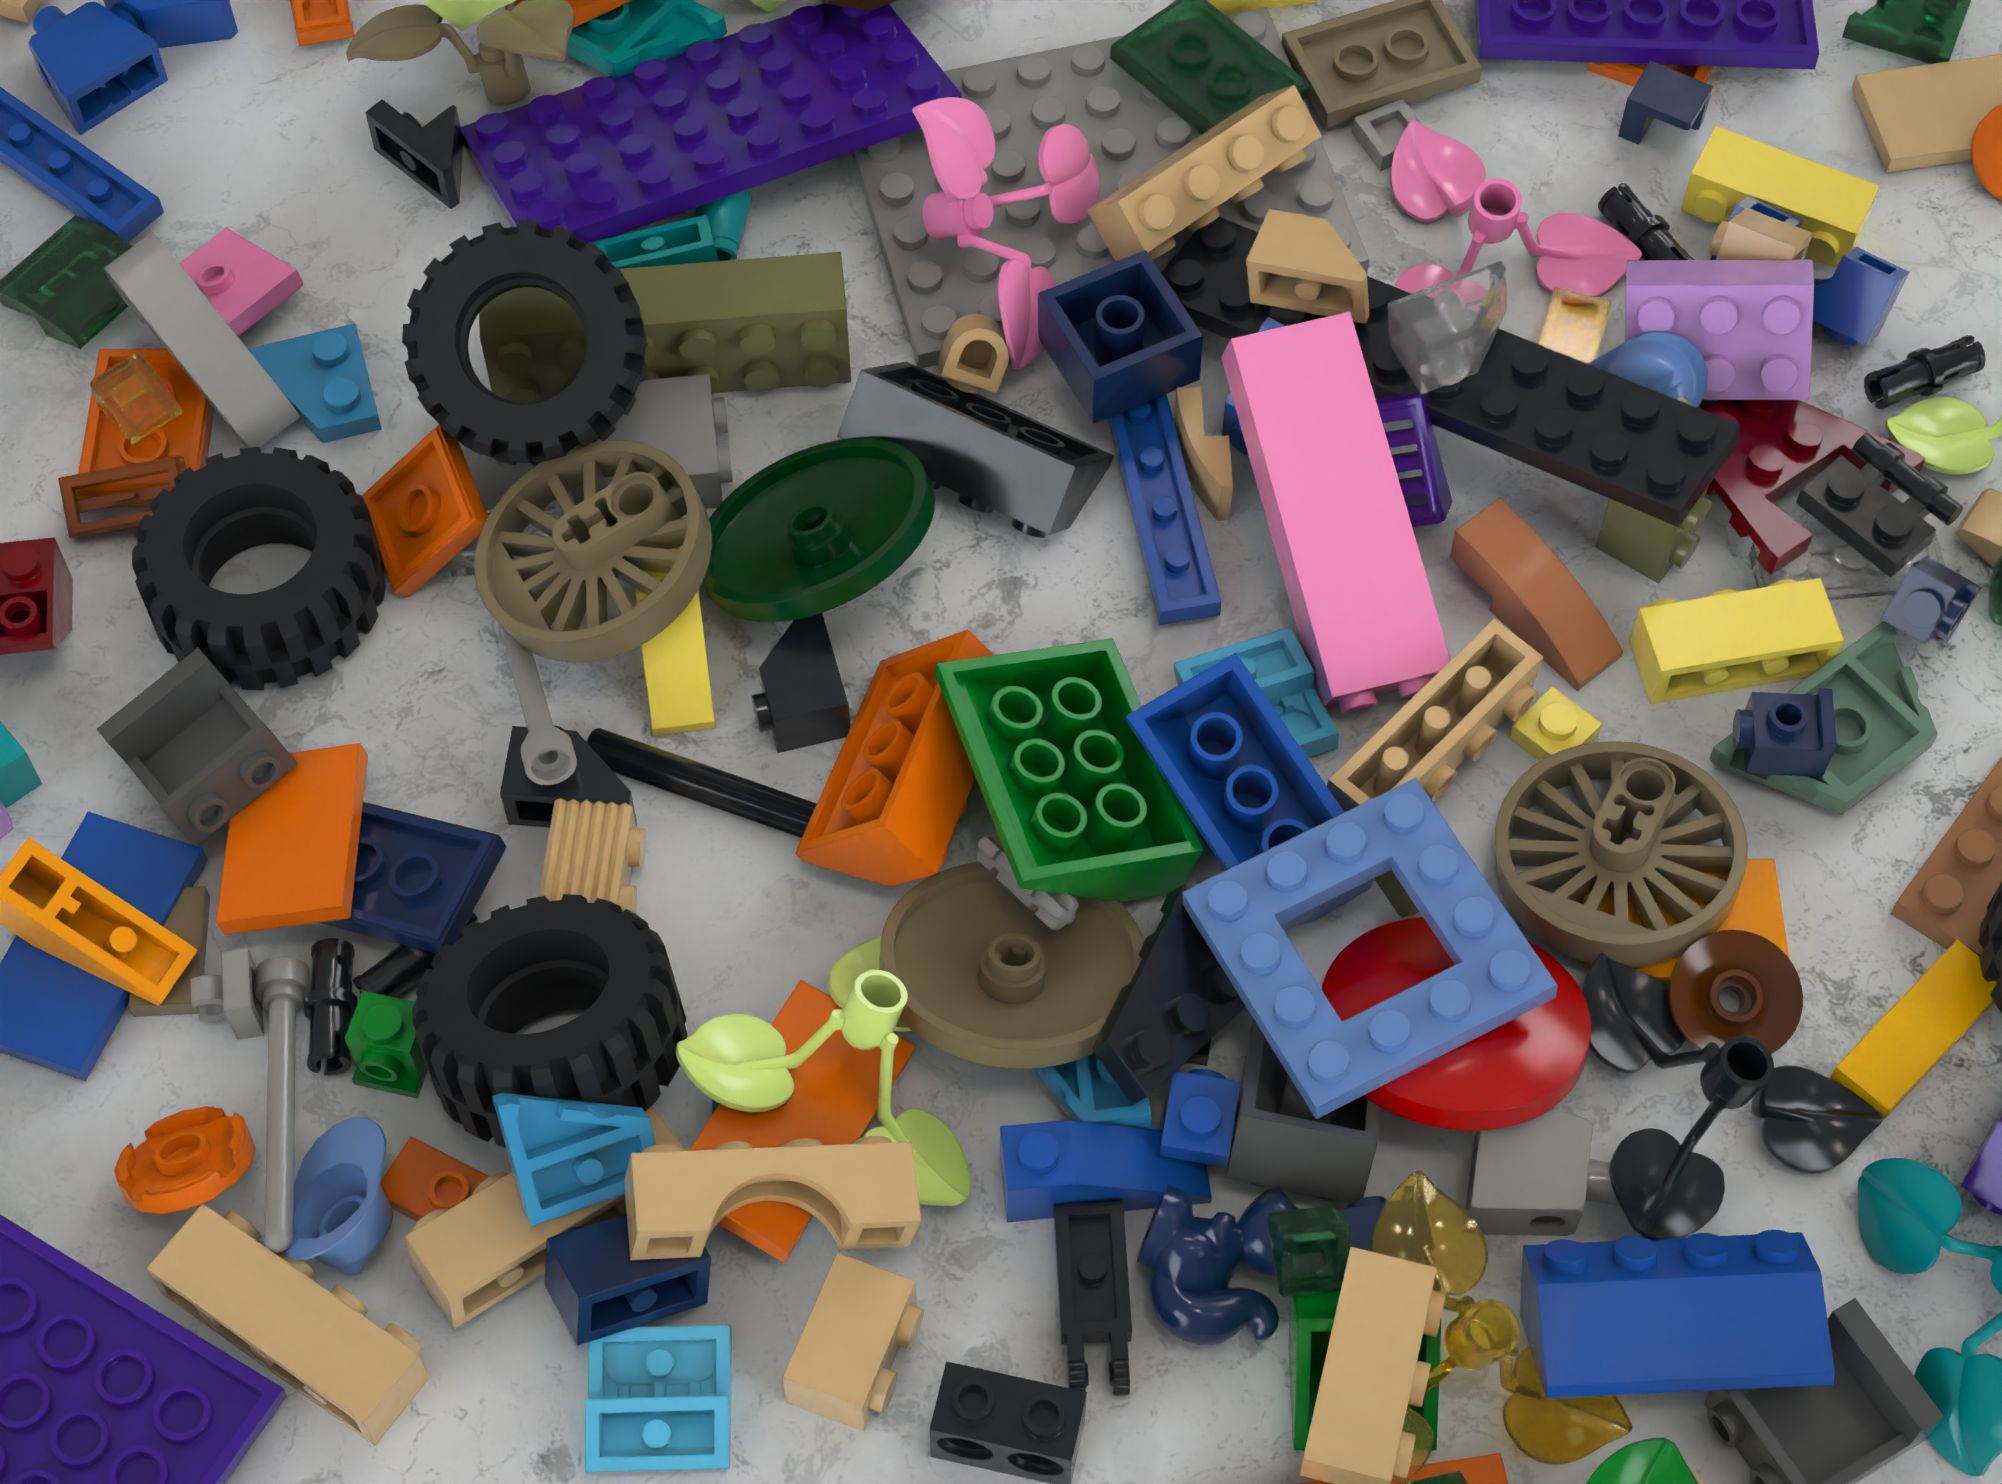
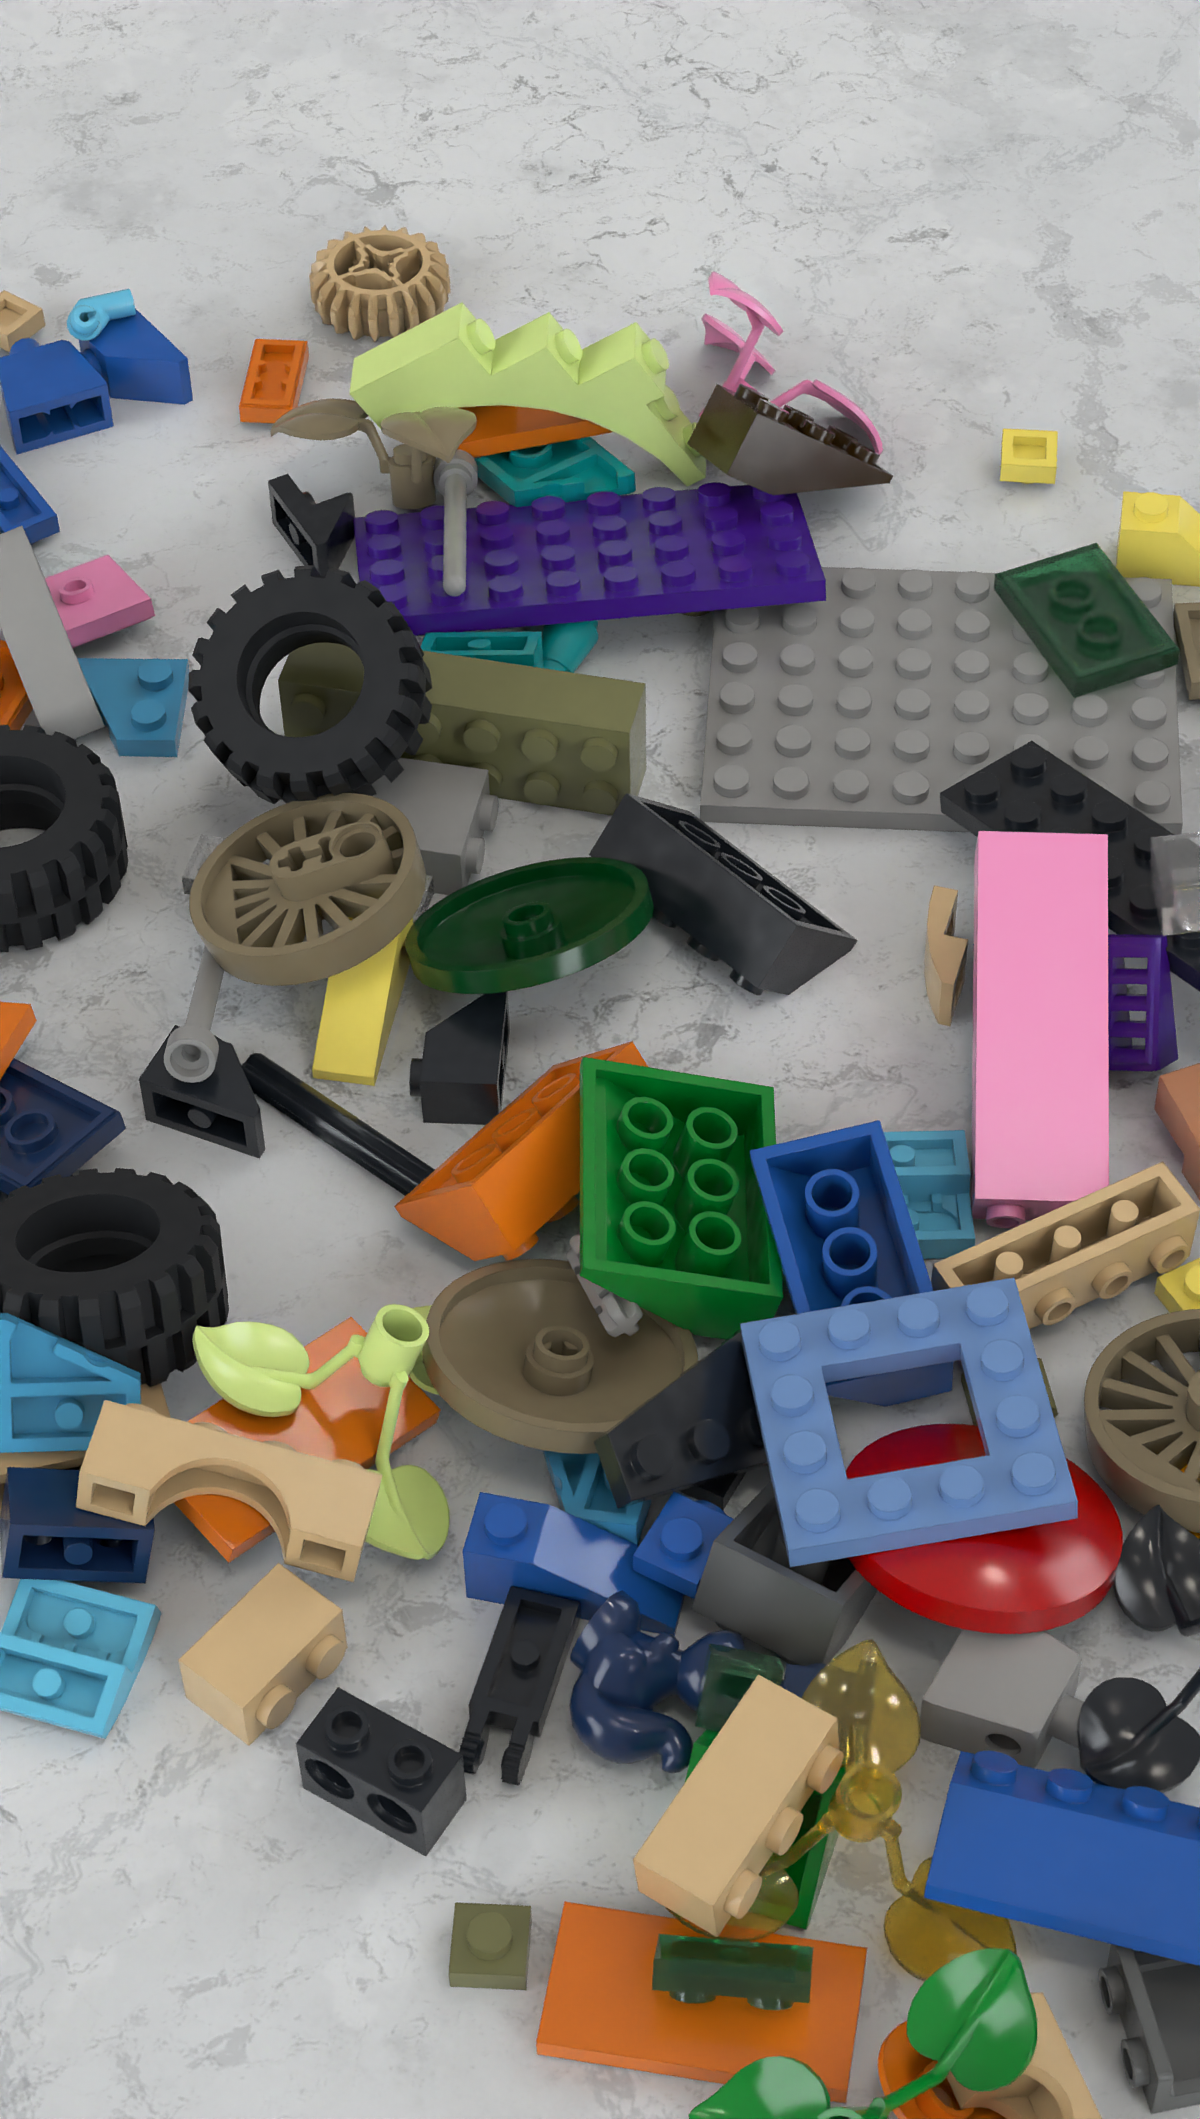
camera: 20 degrees right, 10 degrees down
(425, 511) = (176, 827): orange tile -> none
(576, 121) = (455, 483): none -> light grey piece
(593, 852) = (210, 1155): tan brick -> none
(959, 151) = (782, 611): bright pink plant -> none
(974, 354) = (752, 814): tan plate -> none
(1119, 336) = (891, 823): dark blue brick -> none
(1164, 513) = (887, 959): blue plate -> none
(1205, 174) = (1036, 700): tan brick -> none
(1305, 268) = (1089, 792): tan slope -> none

